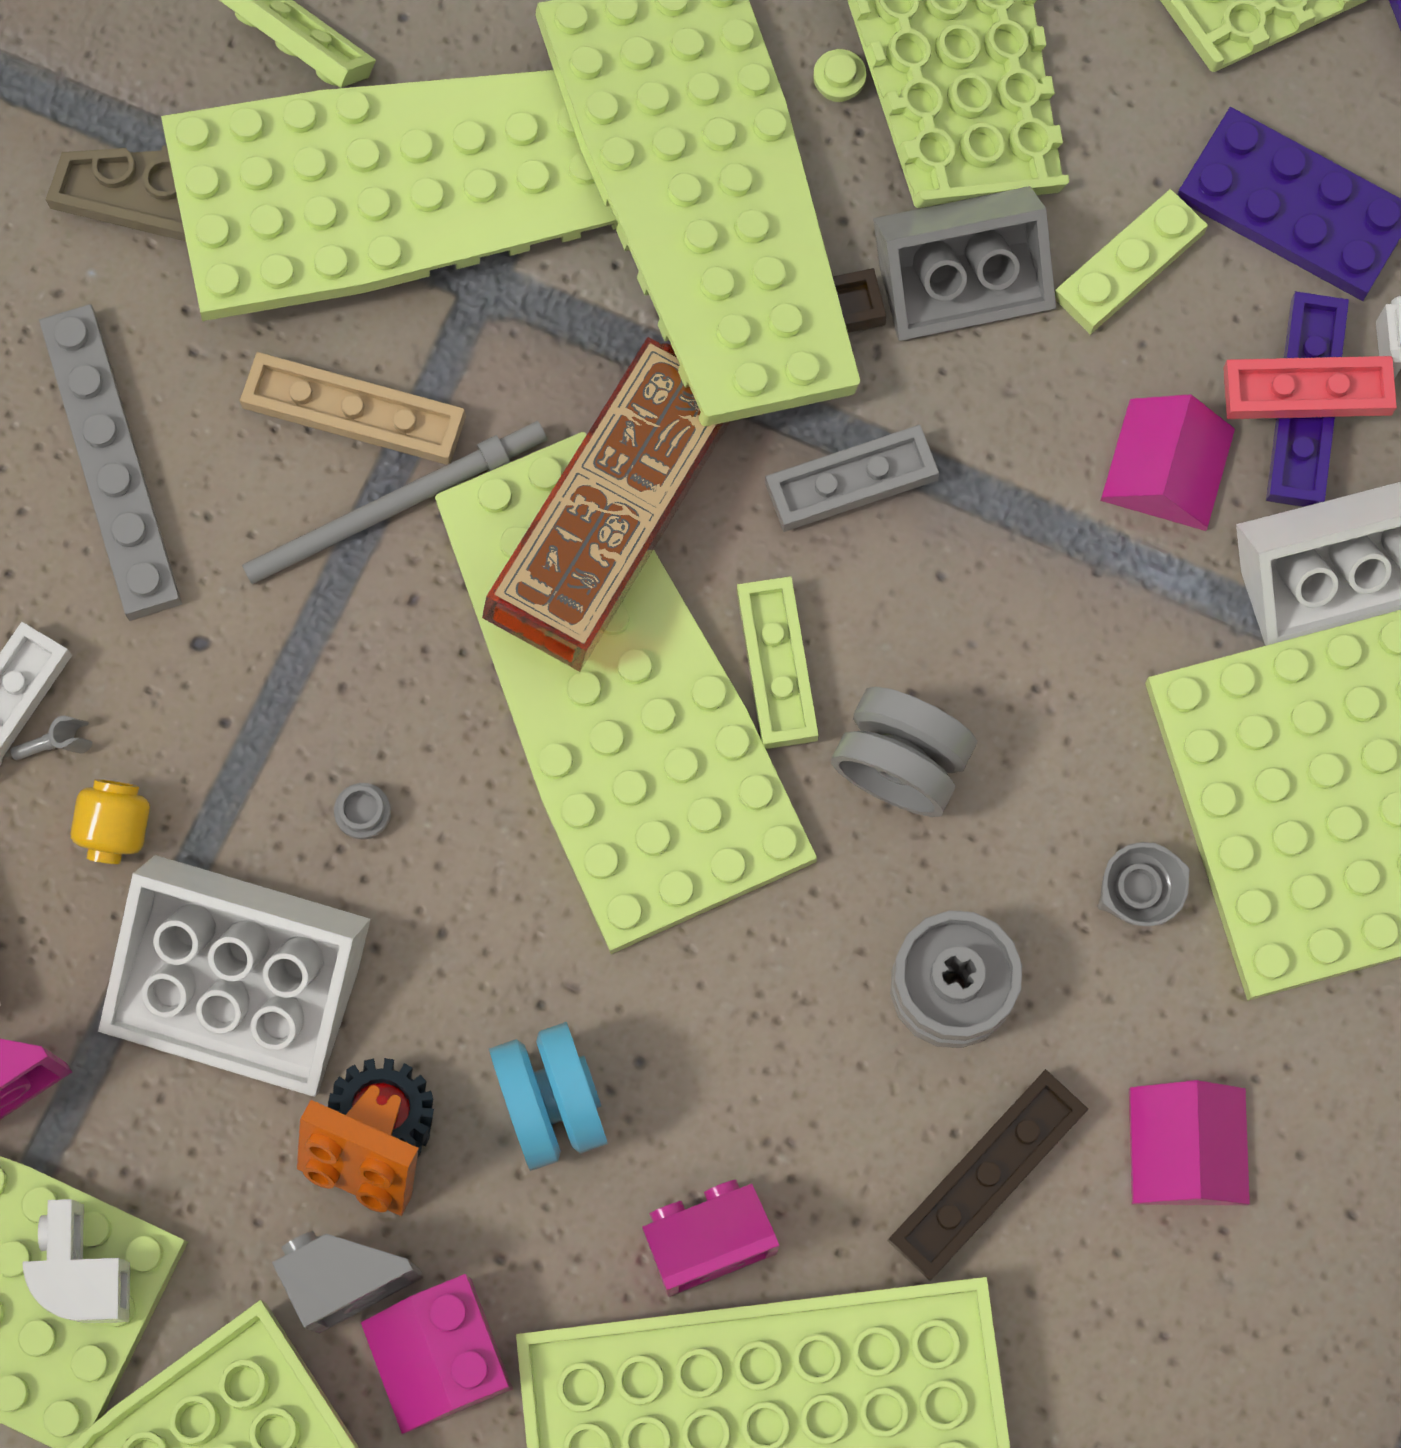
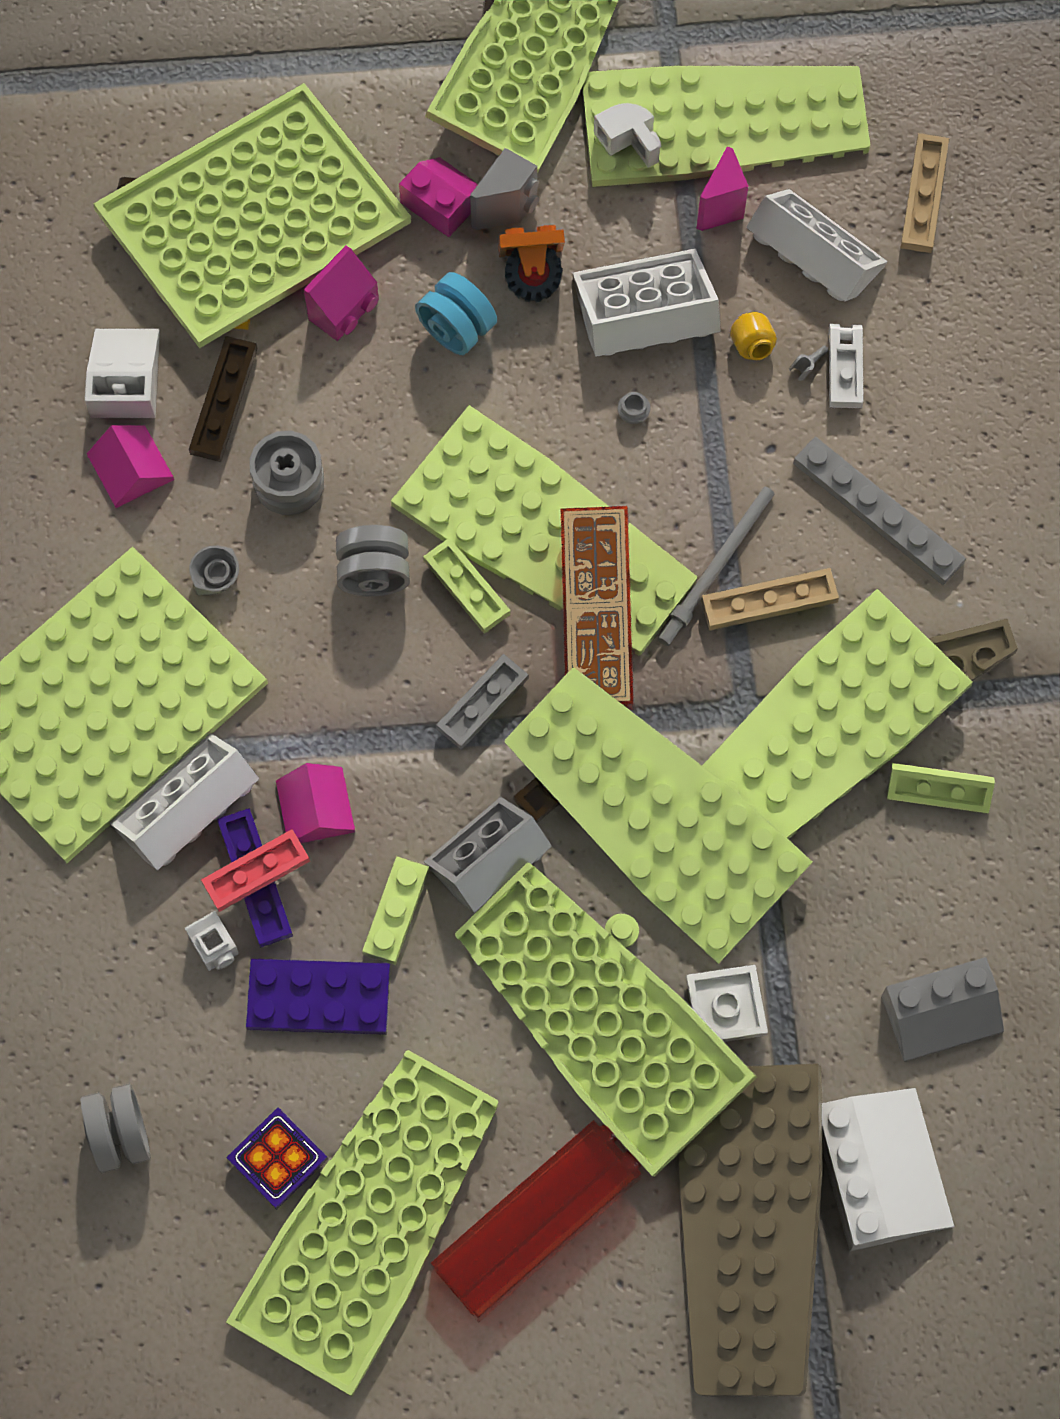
camera: 150 degrees right, 5 degrees down
(1127, 1310) = (123, 373): none -> white slope

